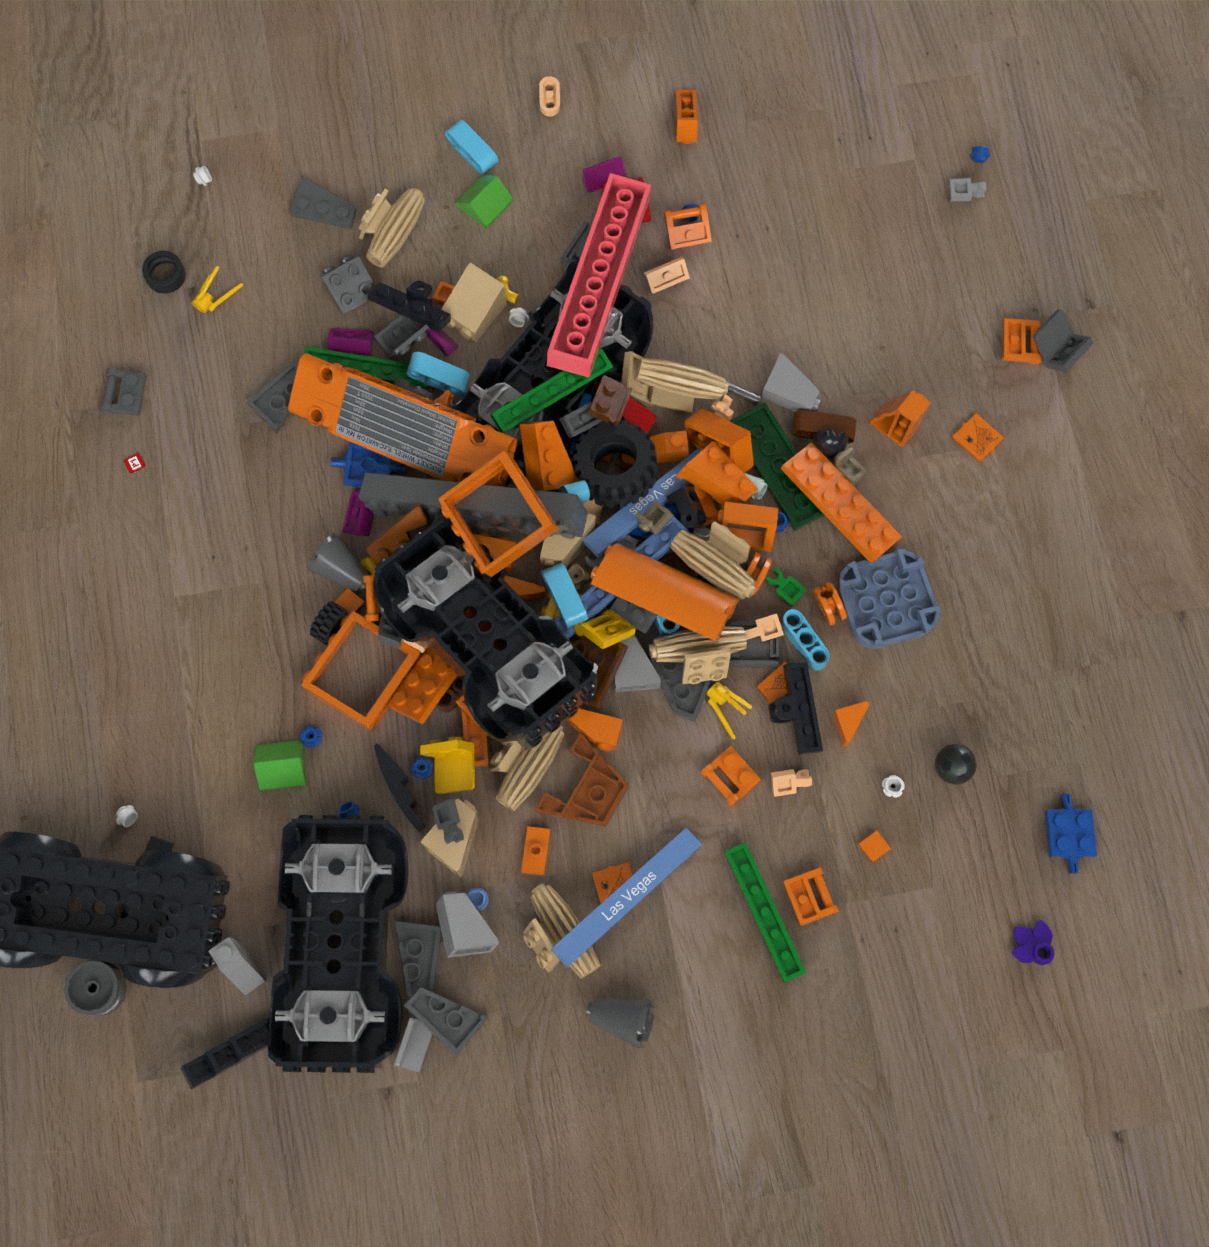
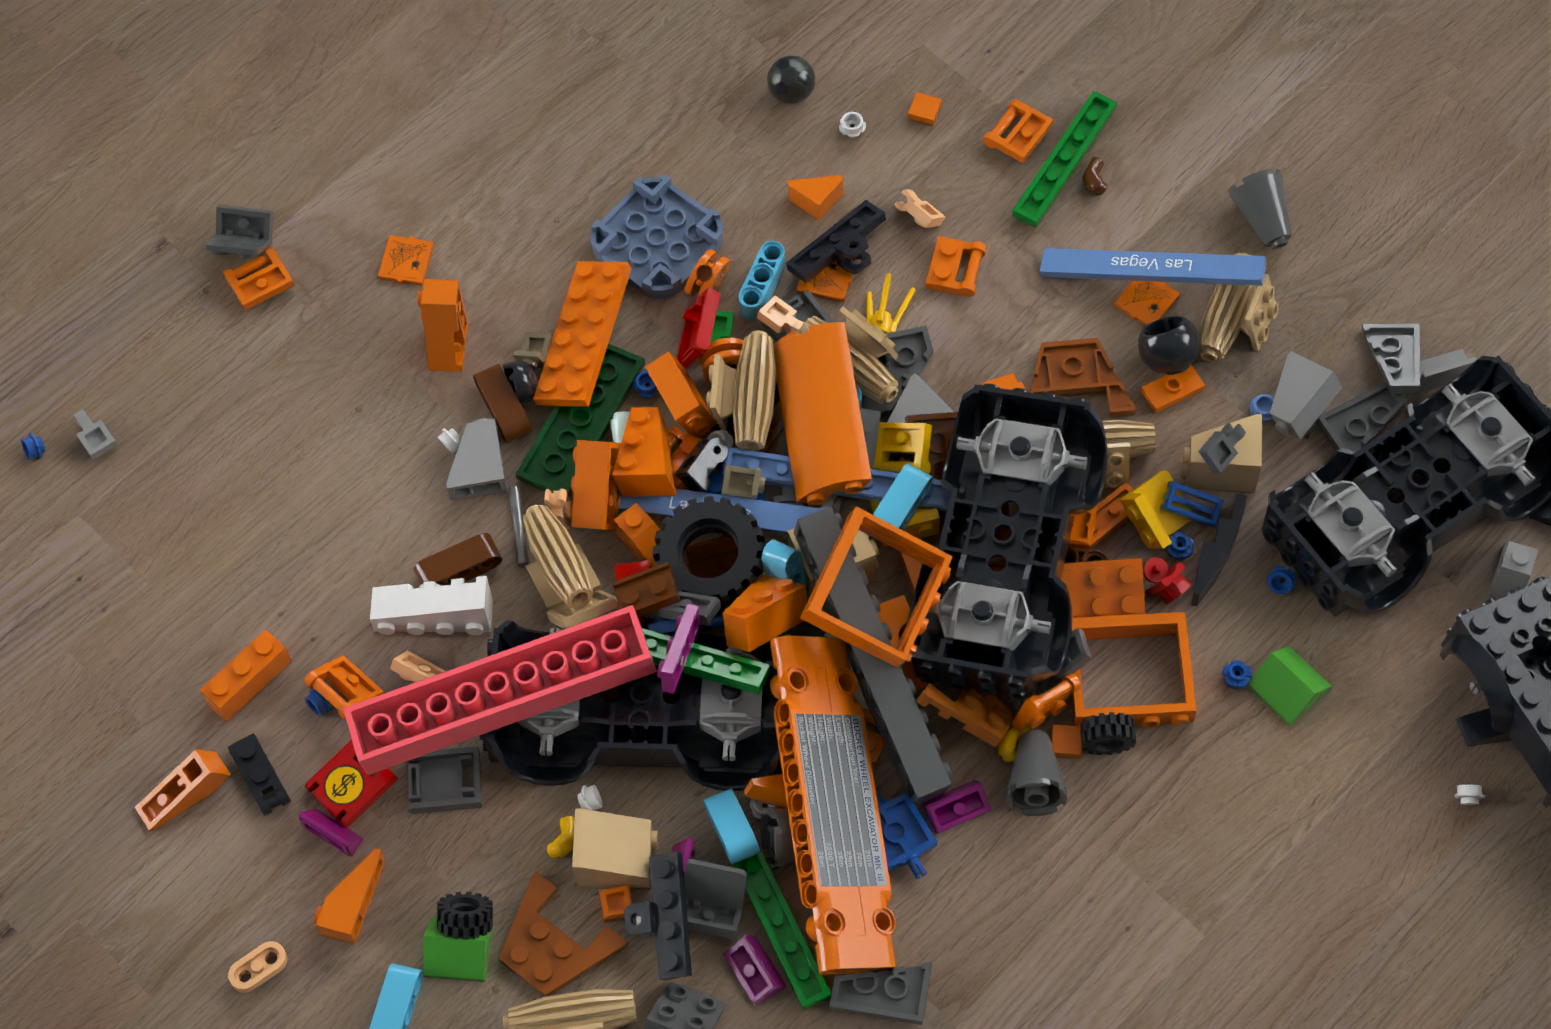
camera: 120 degrees left, 10 degrees down
(399, 732) = (1167, 582): none -> red hips
(447, 792) = (1169, 497): none -> blue tile
(448, 240) = (544, 953): none -> dark orange wing
(484, 205) = (464, 915): none -> black tyre
(548, 154) = (349, 901): none -> orange slope
(549, 383) = (679, 648): none -> magenta plate
(562, 863) = (1169, 344): none -> black wheel
(667, 160) = (258, 773): none -> black plate
(704, 302) = (433, 608): none -> white wedge
(726, 335) = (462, 560): none -> reddish brown beam
(734, 182) = (245, 675): none -> orange brick
(735, 919) = (1092, 177): none -> reddish brown arm
(790, 568) = (697, 327): none -> red container
(819, 380) = (450, 439): none -> white plate

